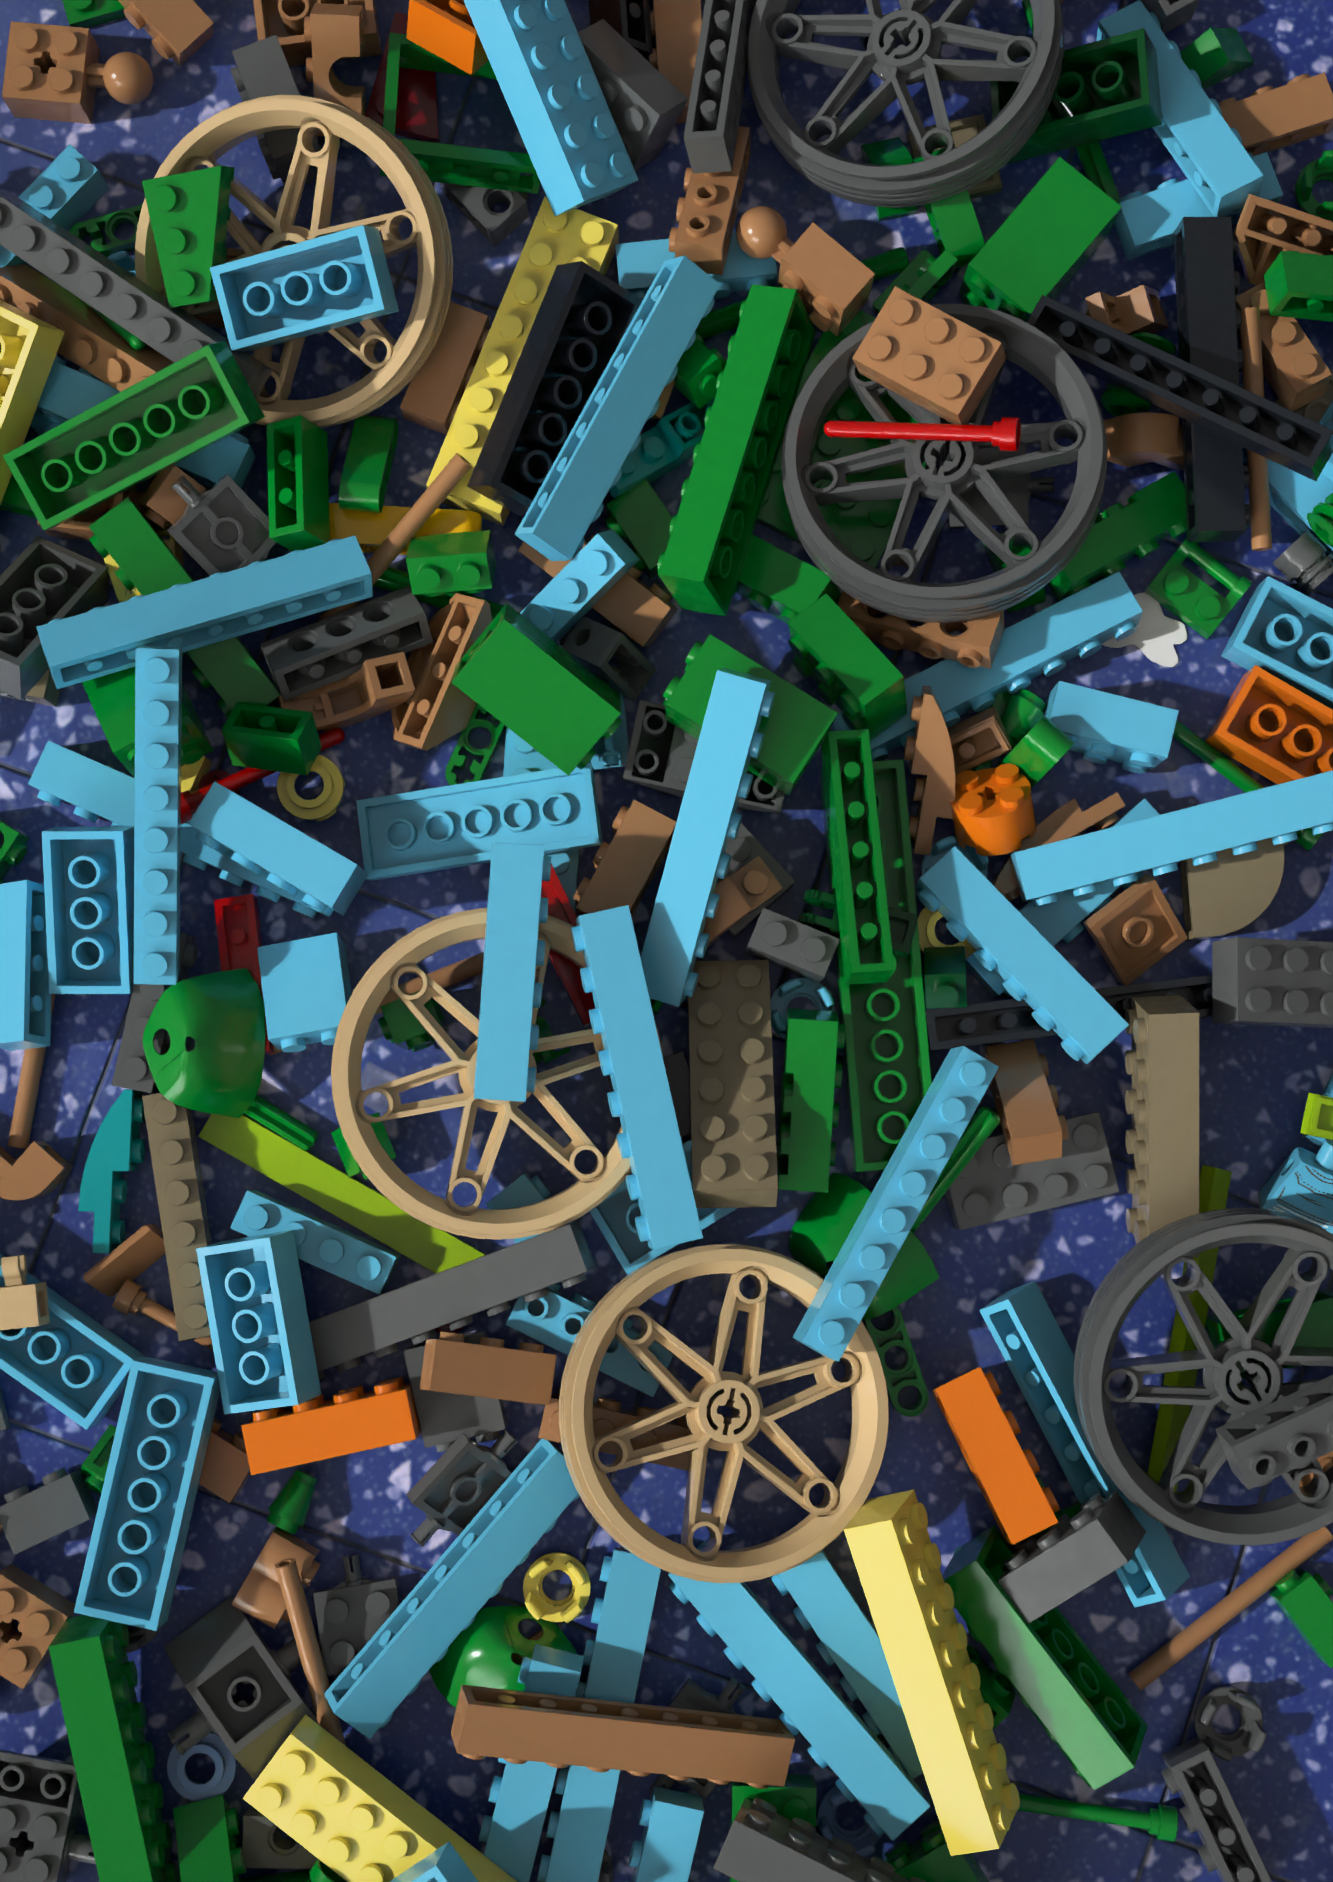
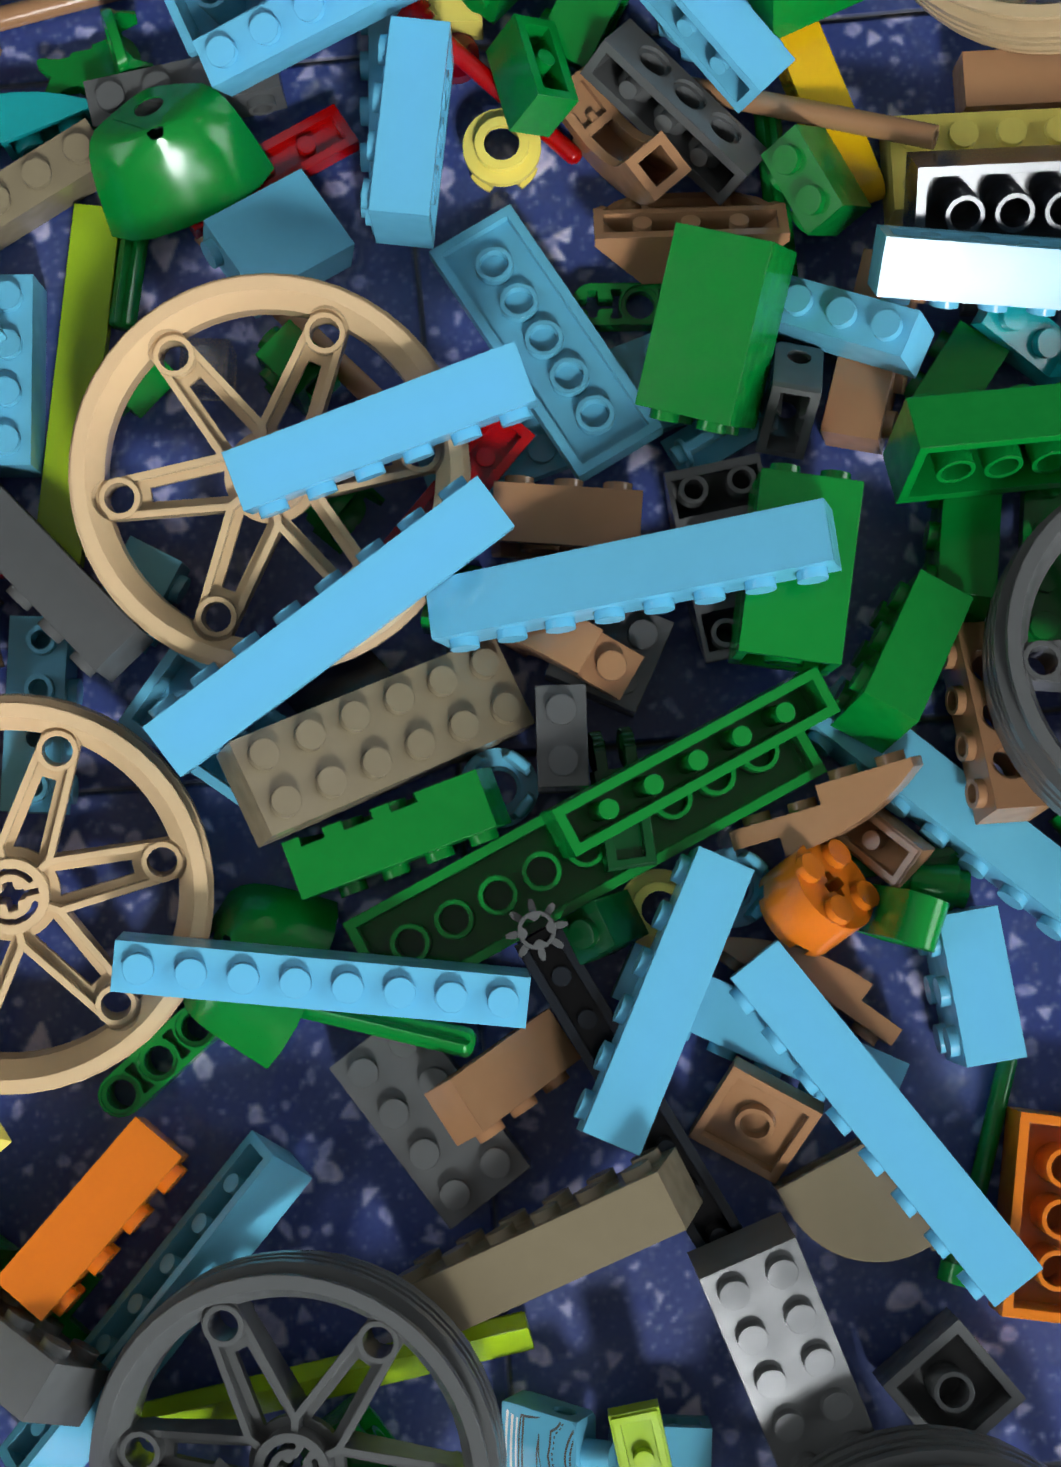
camera: 65 degrees right, 0 degrees up
(97, 1063) = (106, 57): none -> green hair
(368, 464) = (883, 47): green beam -> none
(928, 1015) = (539, 944): none -> dark grey gear

